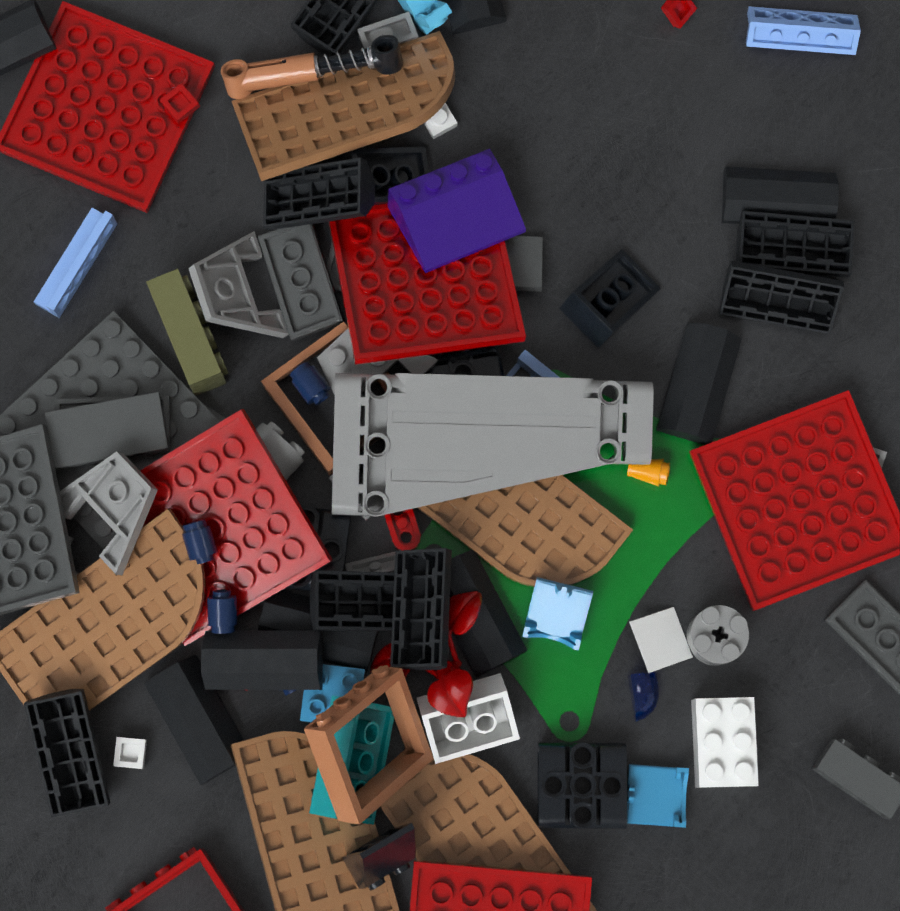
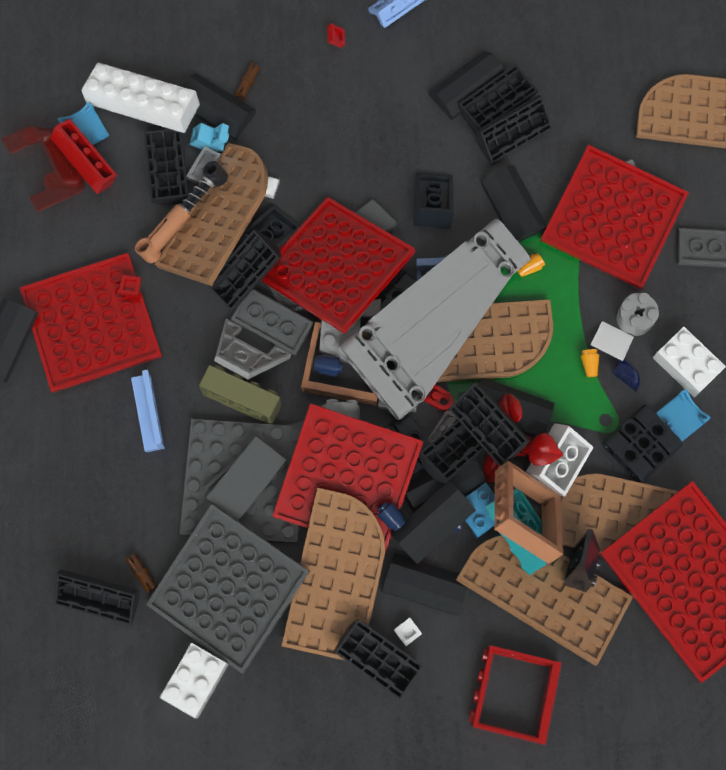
camera: 40 degrees left, 5 degrees down
(120, 497) = (287, 503): light grey wing -> none
(199, 541) = (348, 490): dark blue brick -> none
(456, 210) = (321, 219): dark purple slope -> none
(557, 612) = (552, 371): piece -> none
(611, 642) = (590, 362): none -> light orange cone

